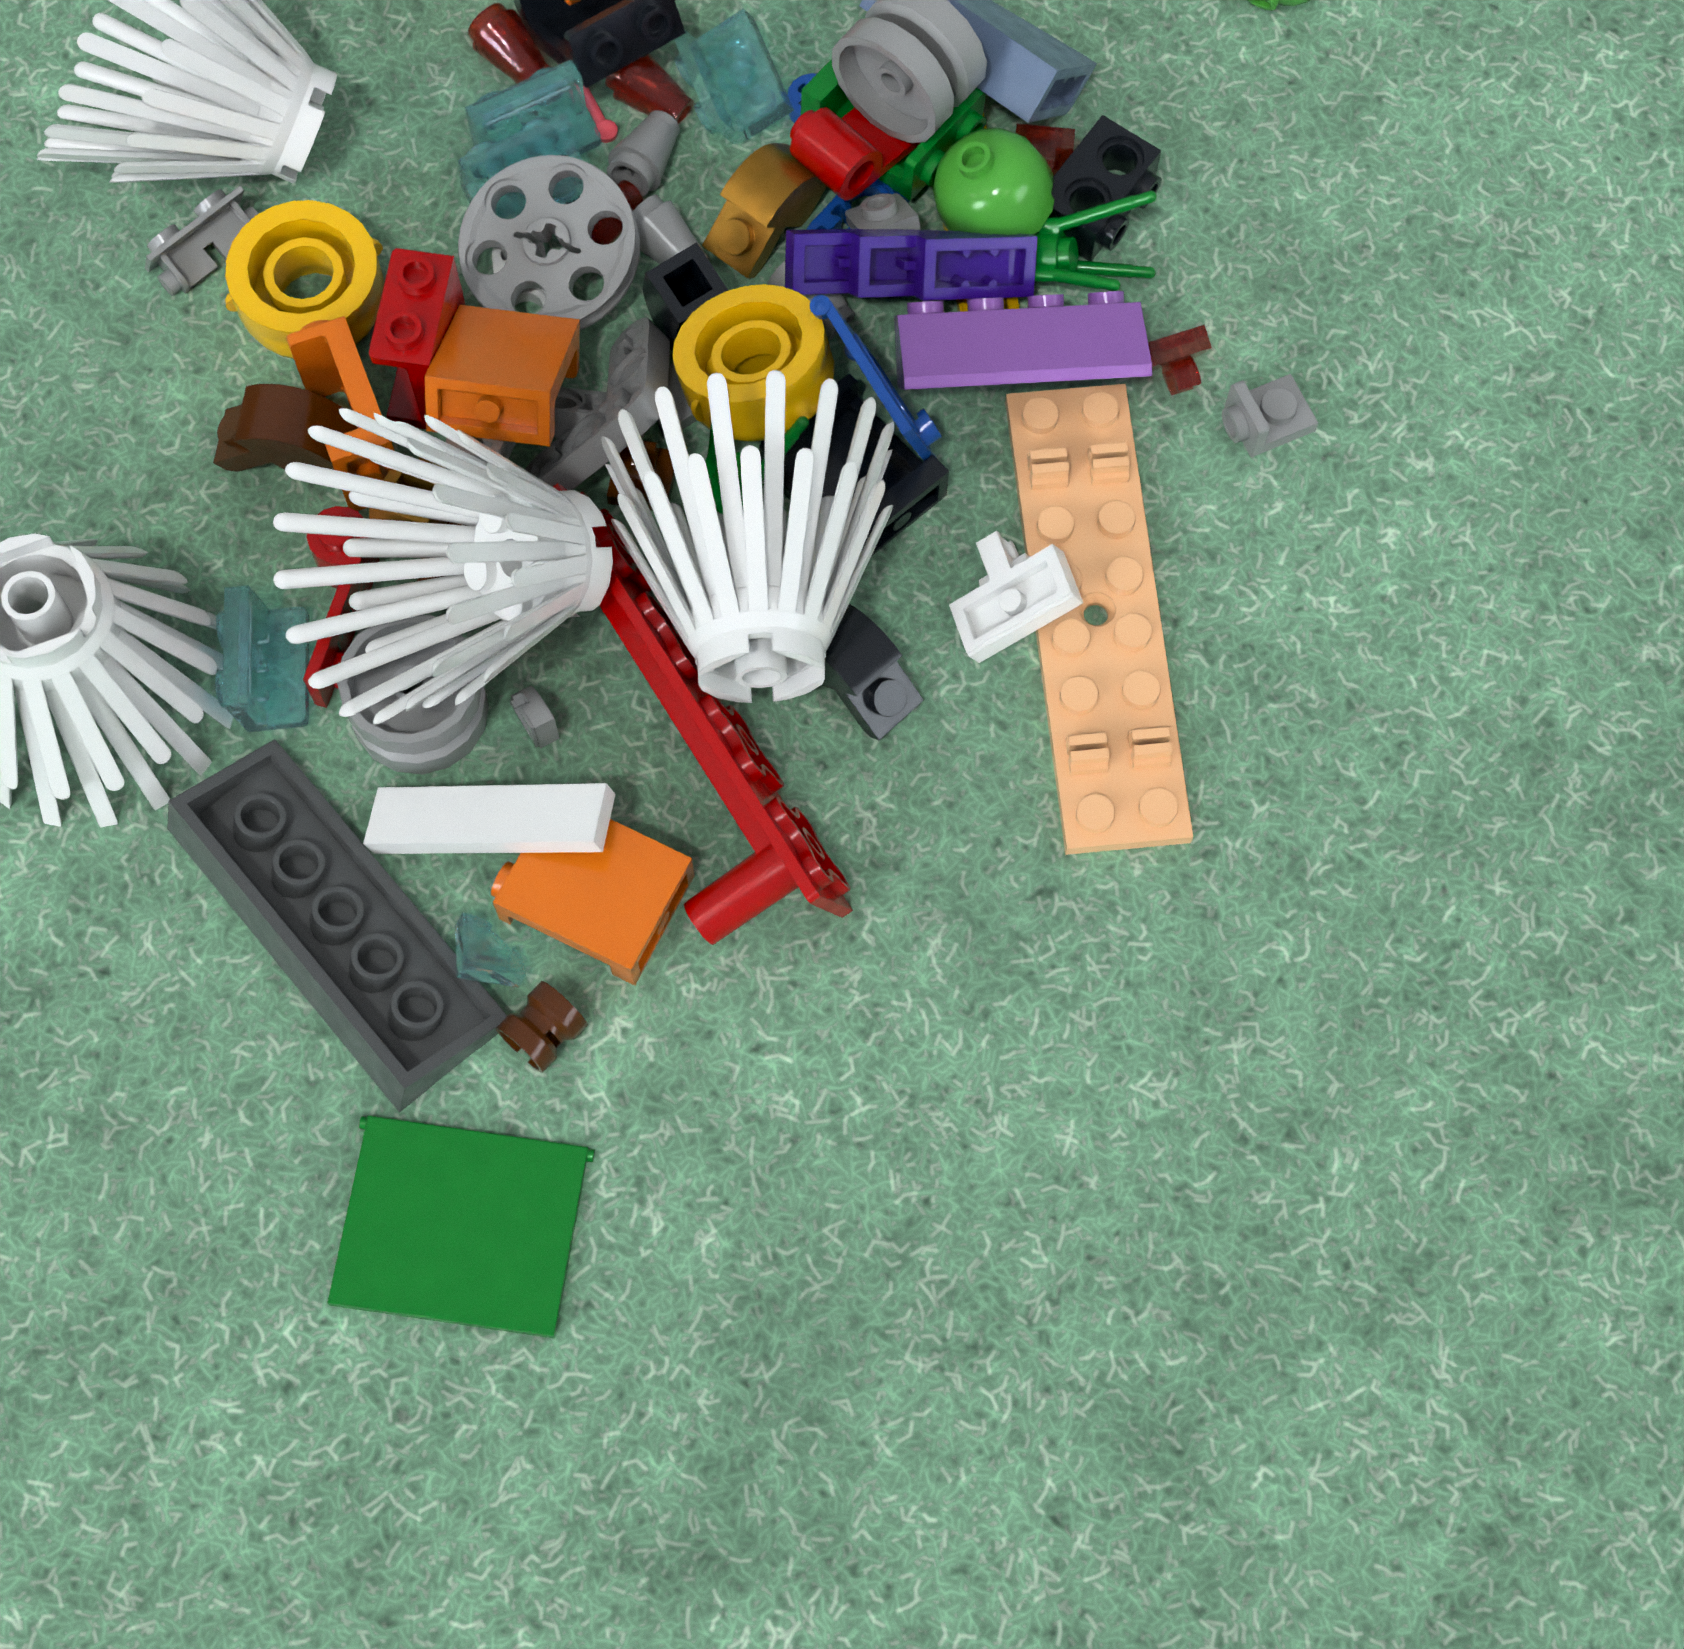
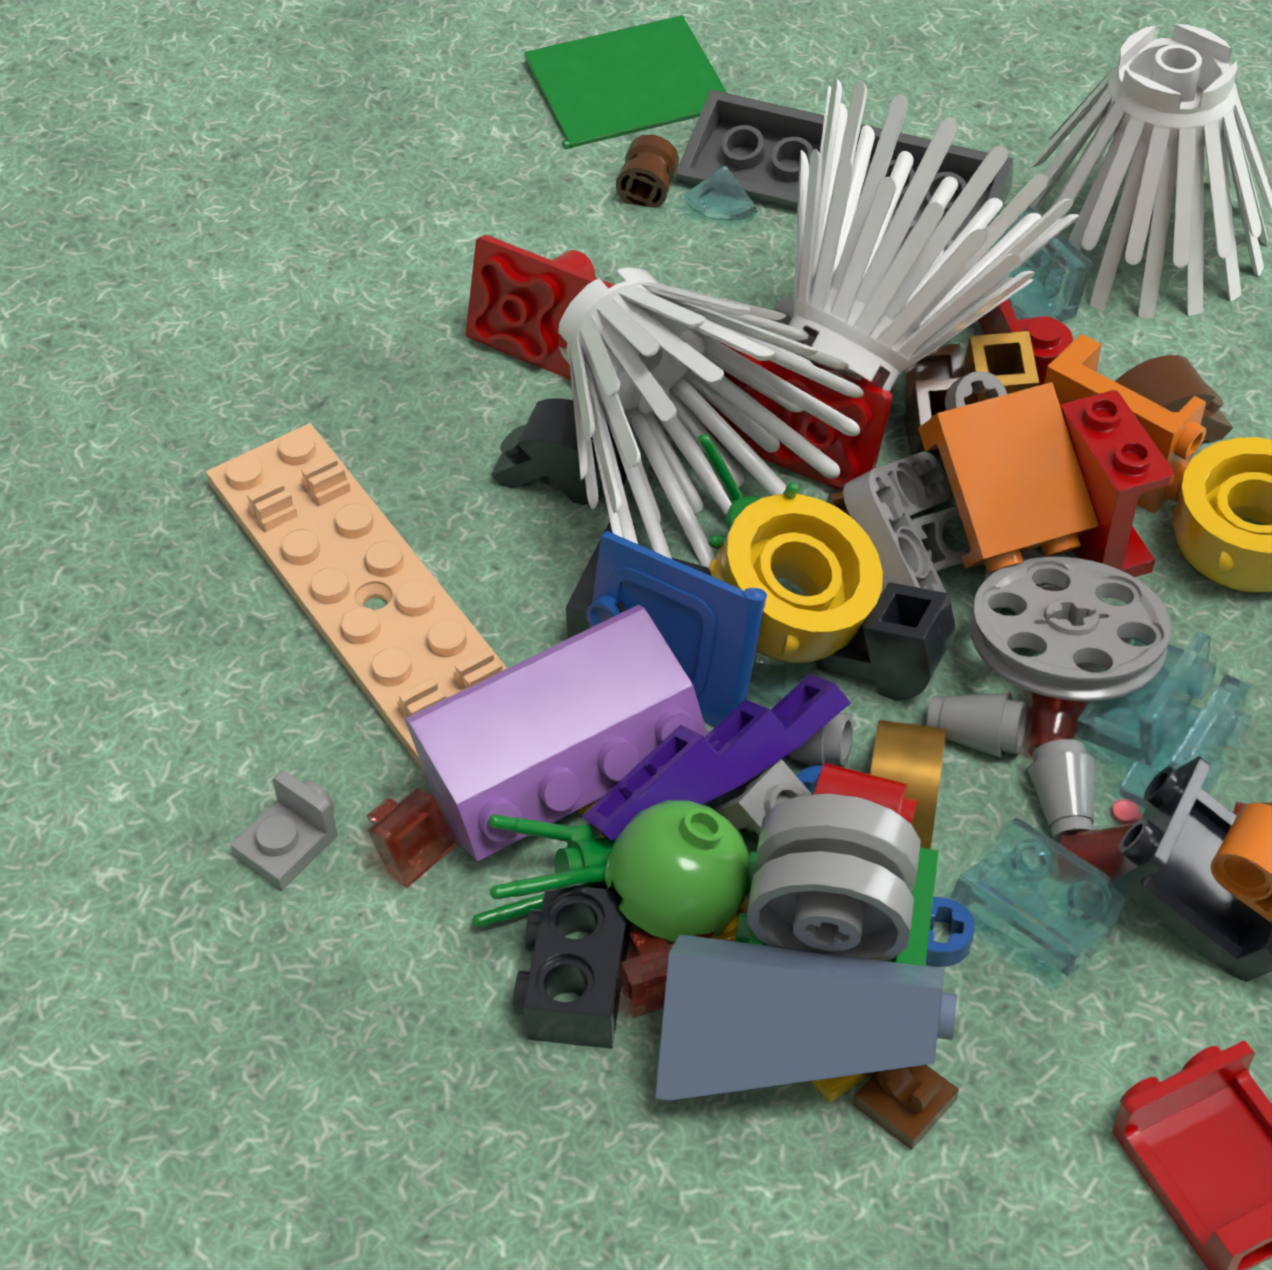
camera: 155 degrees right, 20 degrees down
(490, 819) = (734, 234): white tile -> none
(599, 901) = (675, 240): orange panel -> none
(1014, 596) = (454, 552): white hinge -> none

